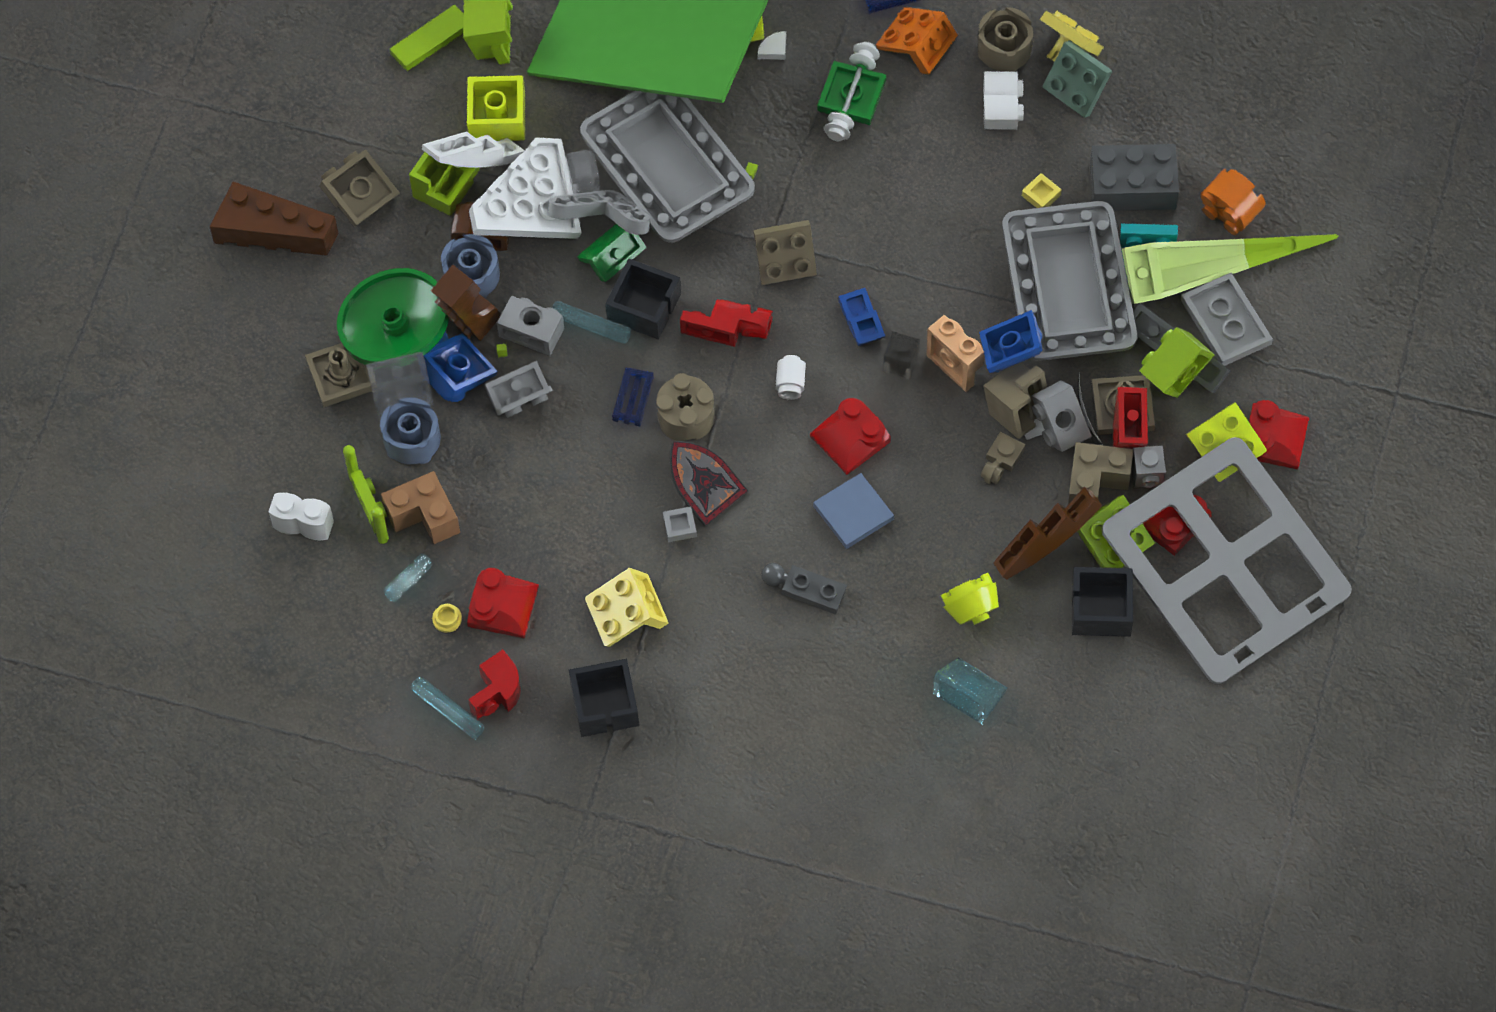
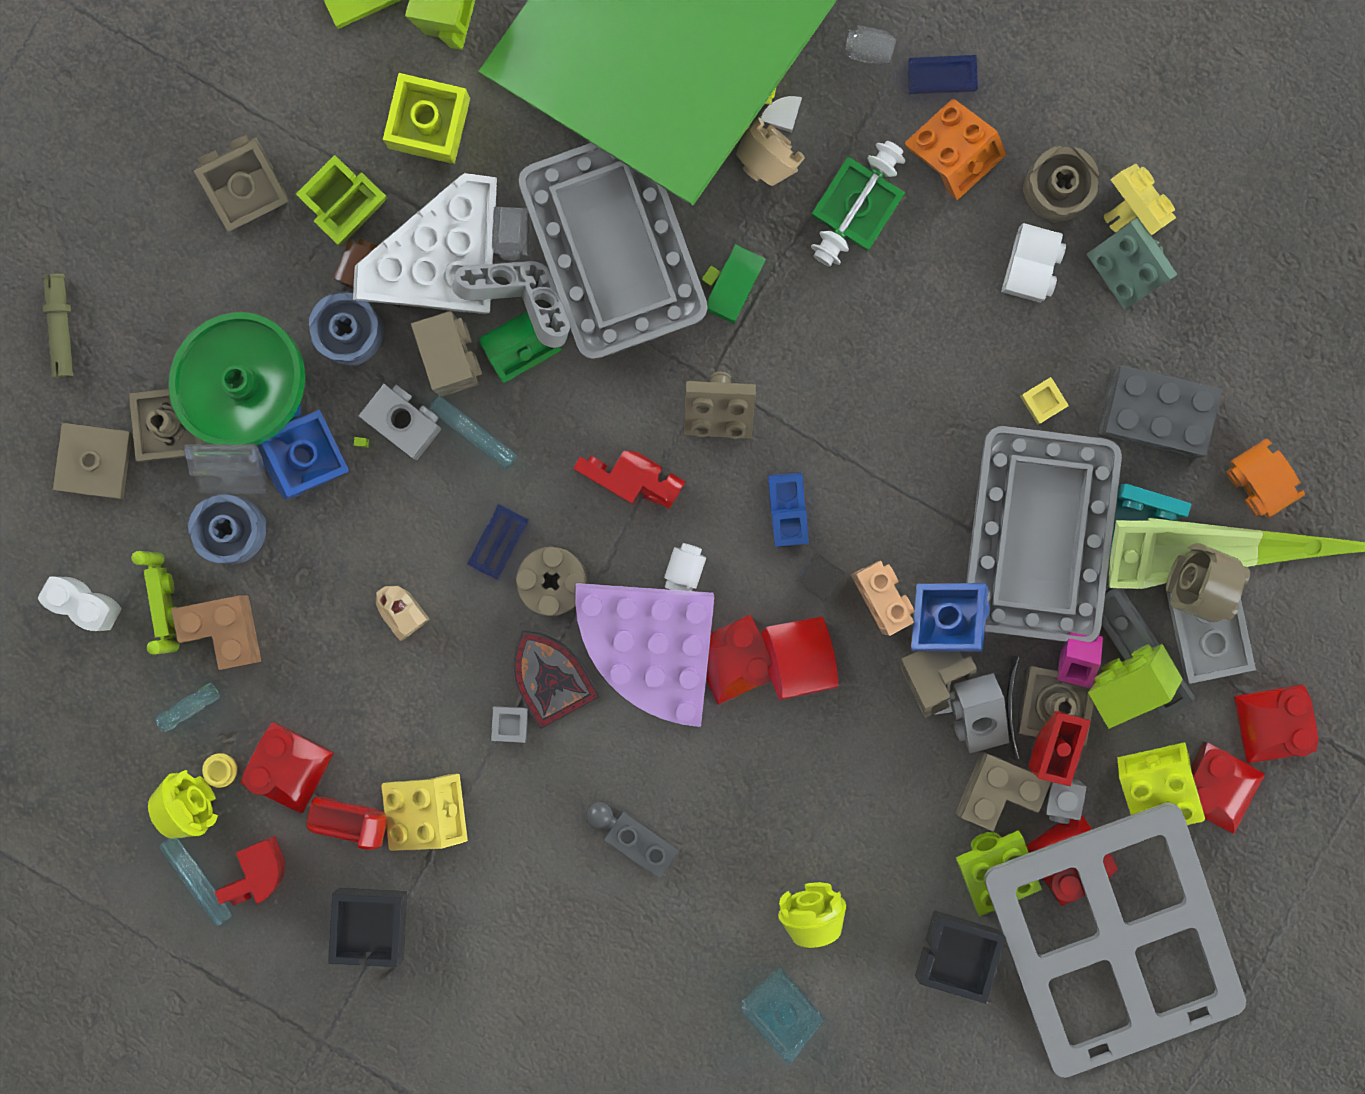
camera: 10 degrees right, 25 degrees up
(231, 314) = (58, 326): none -> olive pin
(273, 222) = (117, 198): reddish brown wedge -> none
(284, 415) = (92, 461): none -> dark tan plate
(423, 644) = (182, 806): none -> neon yellow cone
(463, 304) = (308, 401): reddish brown arch -> none
(468, 151) = (378, 184): white slope -> none
(518, 388) = (366, 504): light grey bracket -> none
(556, 262) = (445, 353): none -> dark tan brick
(566, 626) = (347, 822): none -> red animal
(567, 464) = (400, 611): none -> tan rock
(643, 298) = (538, 425): black piece -> none
(770, 70) = (767, 154): none -> tan cone
(771, 169) = (734, 284): none -> green slope
(778, 431) = (649, 645): none -> lavender plate
(853, 510) = (712, 756): sand blue tile -> none
(903, 413) = (801, 658): none -> red slope
(1003, 453) = (905, 728): dark tan plate -> none
(1040, 539) = (922, 858): reddish brown slope -> none
(1128, 362) = (1080, 661): none -> dark pink brick
(1207, 275) = (1207, 583): none -> dark tan brick
(1305, 377) = (1276, 723): none -> red slope

